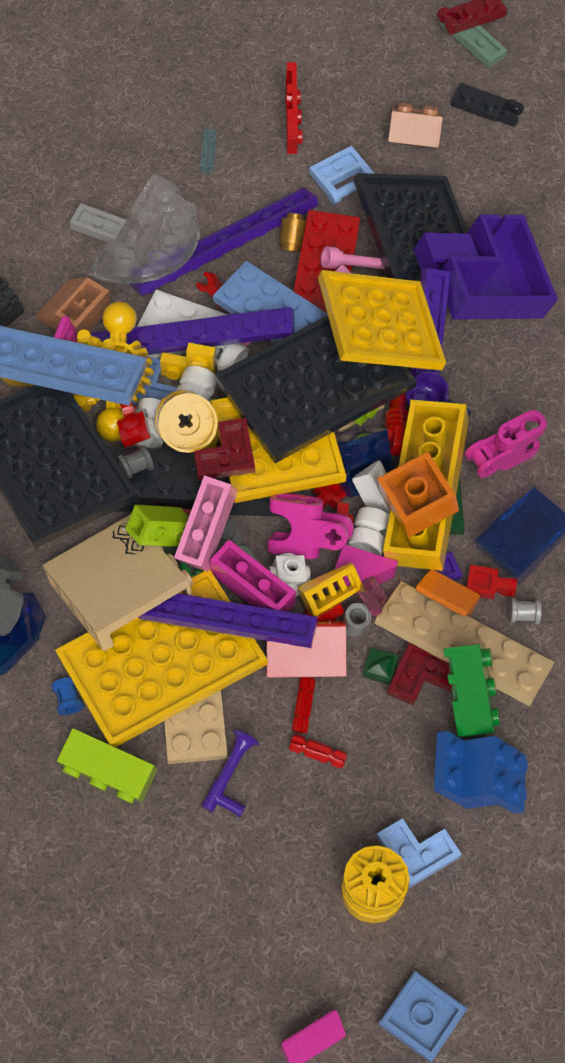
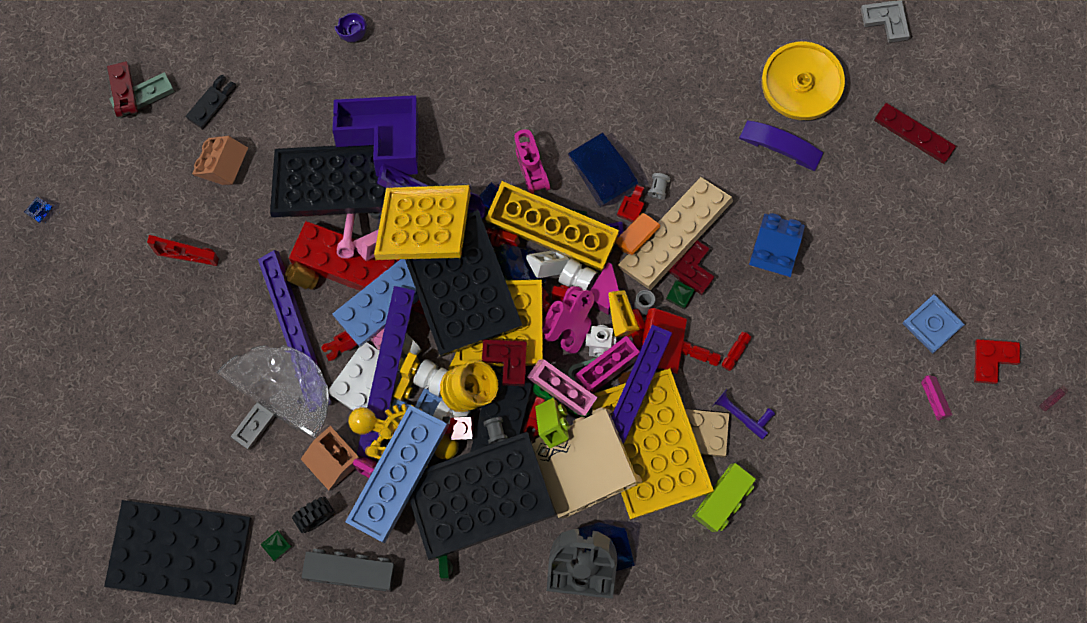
camera: 70 degrees left, 10 degrees up
(67, 697) = (663, 518): blue bush -> none
(208, 151) = (201, 326): clear light blue axle -> none
(337, 169) = (245, 228): light blue plate -> none
(369, 901) = (841, 344): yellow wheel -> none
(372, 596) = (633, 285): clear pink tile -> none
(418, 494) = (573, 231): orange brick -> none
(420, 858) = (826, 303): light blue plate -> none
(436, 248) = (358, 164): dark purple brick -> none
(472, 689) = (718, 233): green wedge -> none

